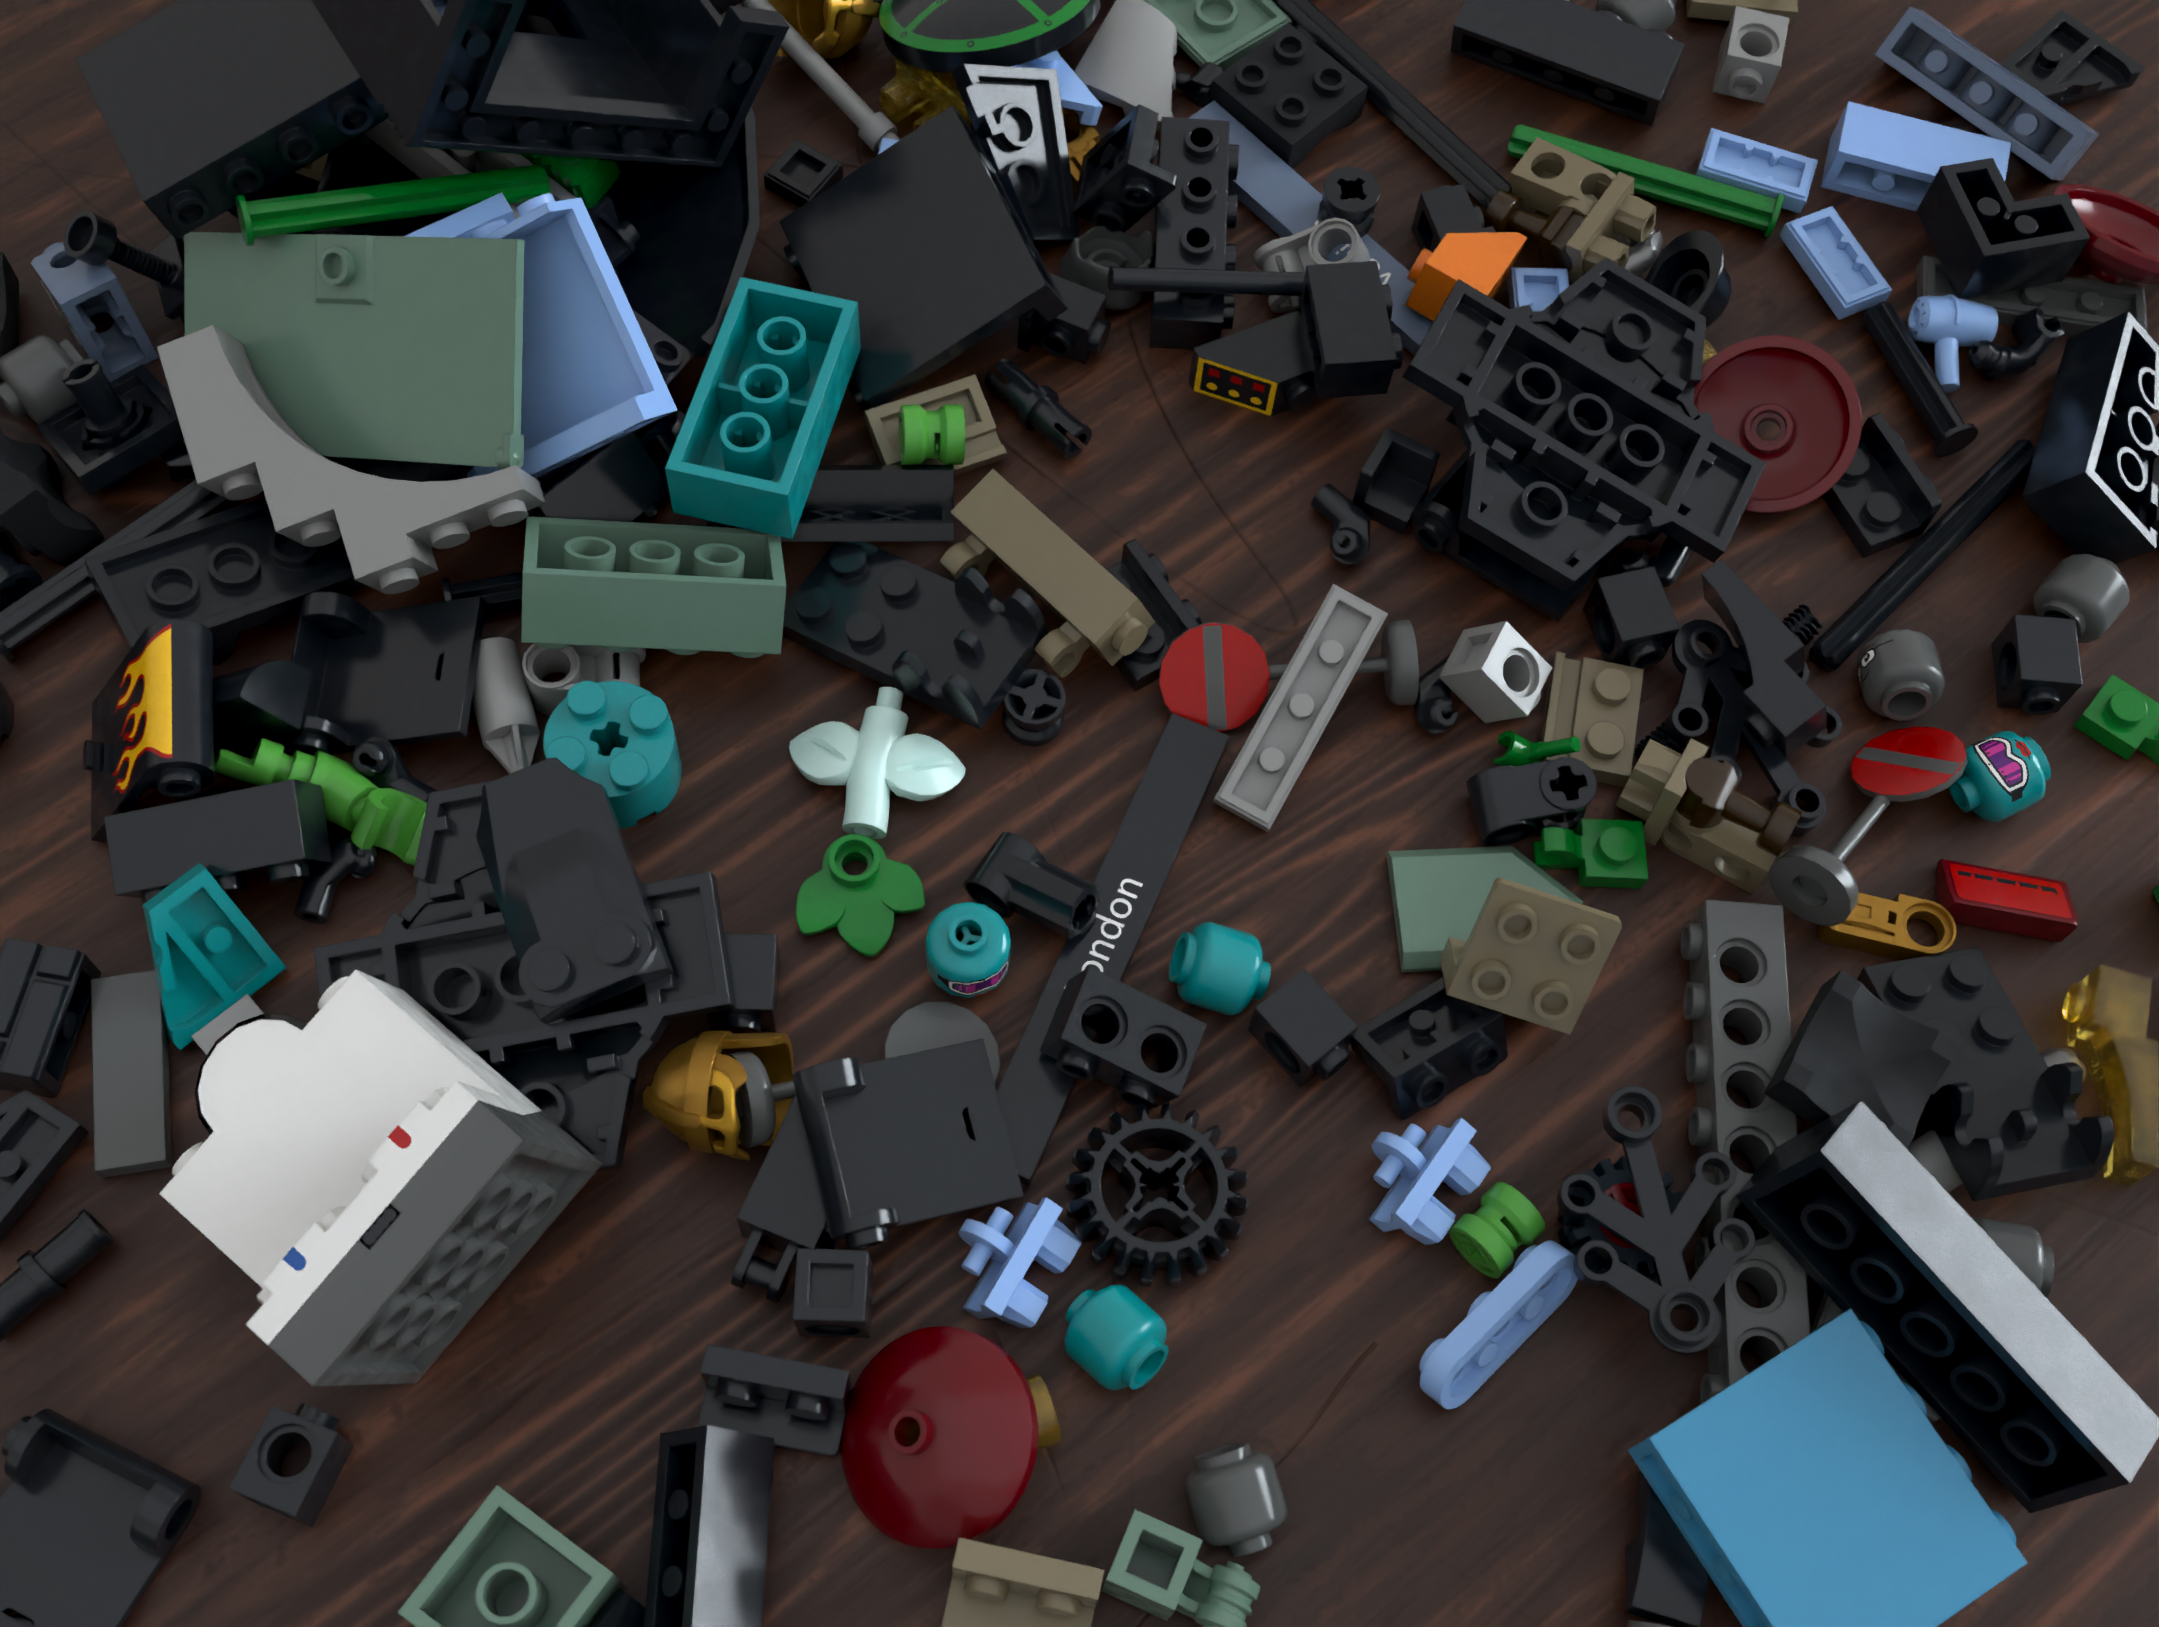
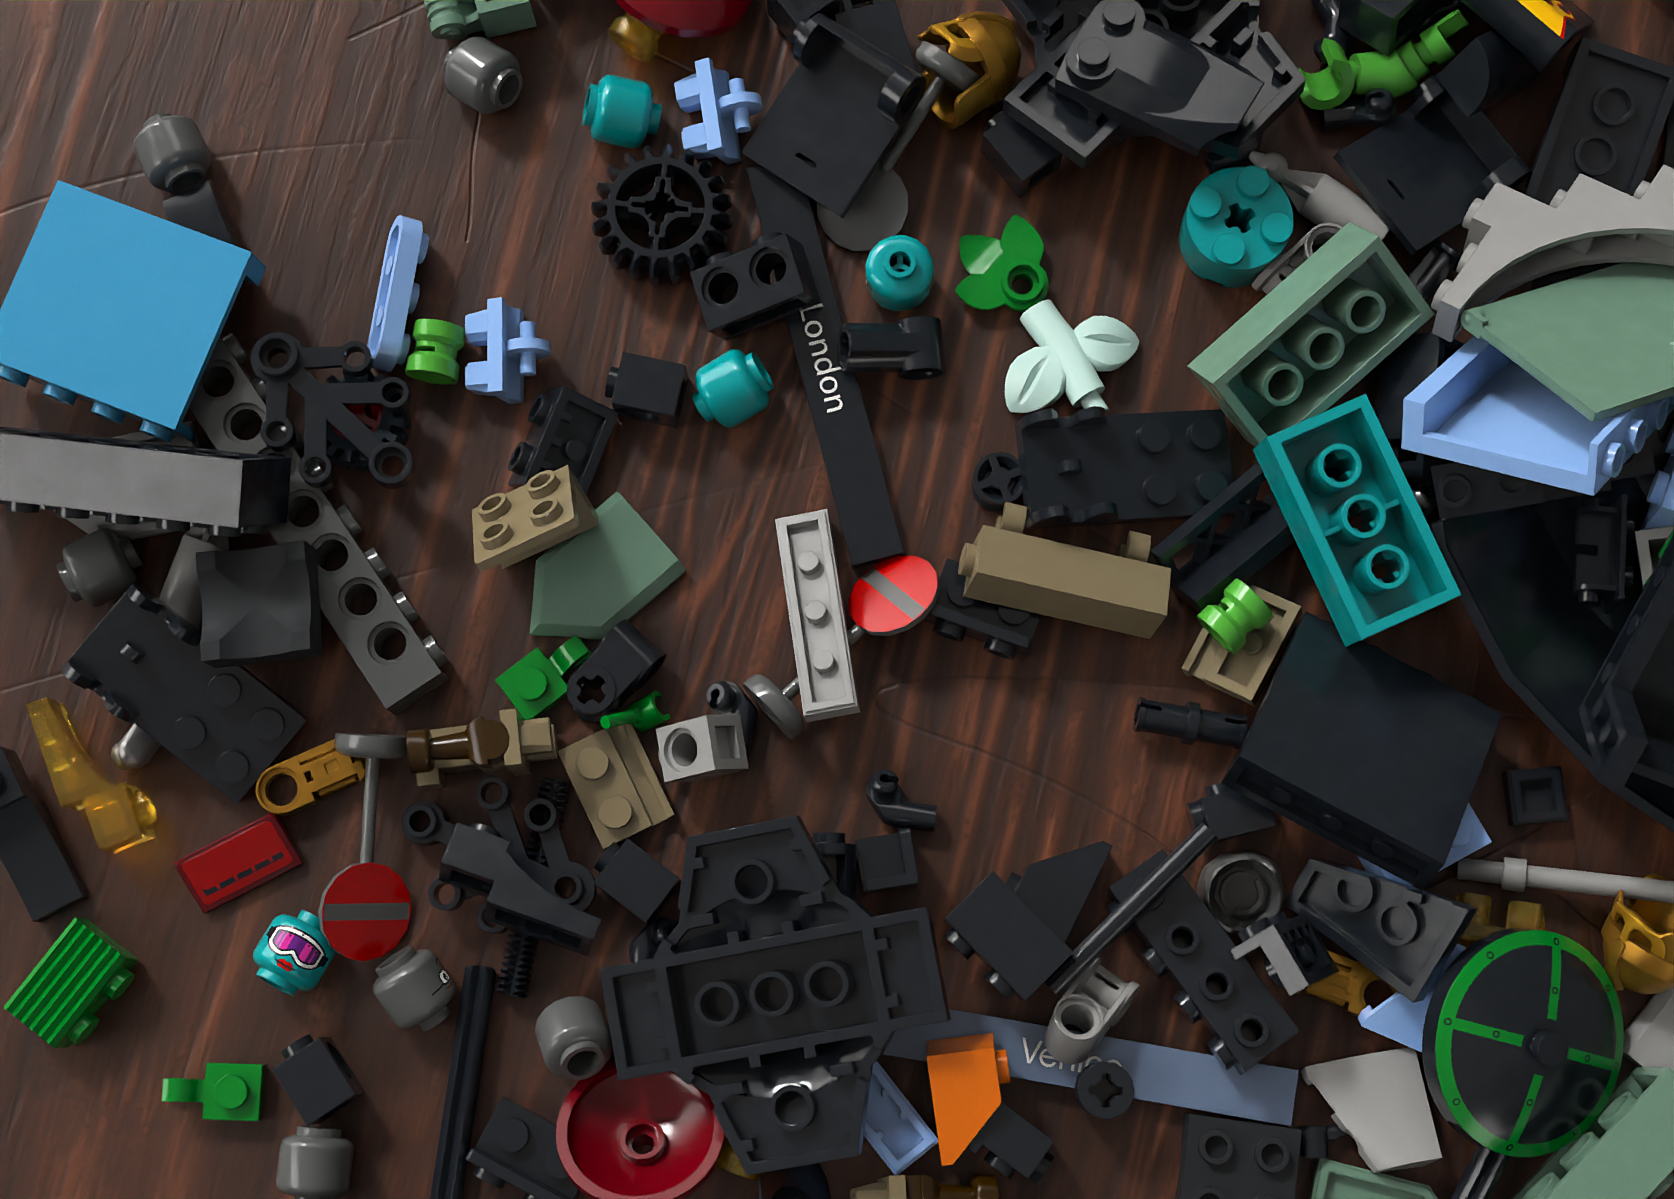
camera: 150 degrees right, 15 degrees up
(1778, 535) = (574, 1037): none -> dark grey head

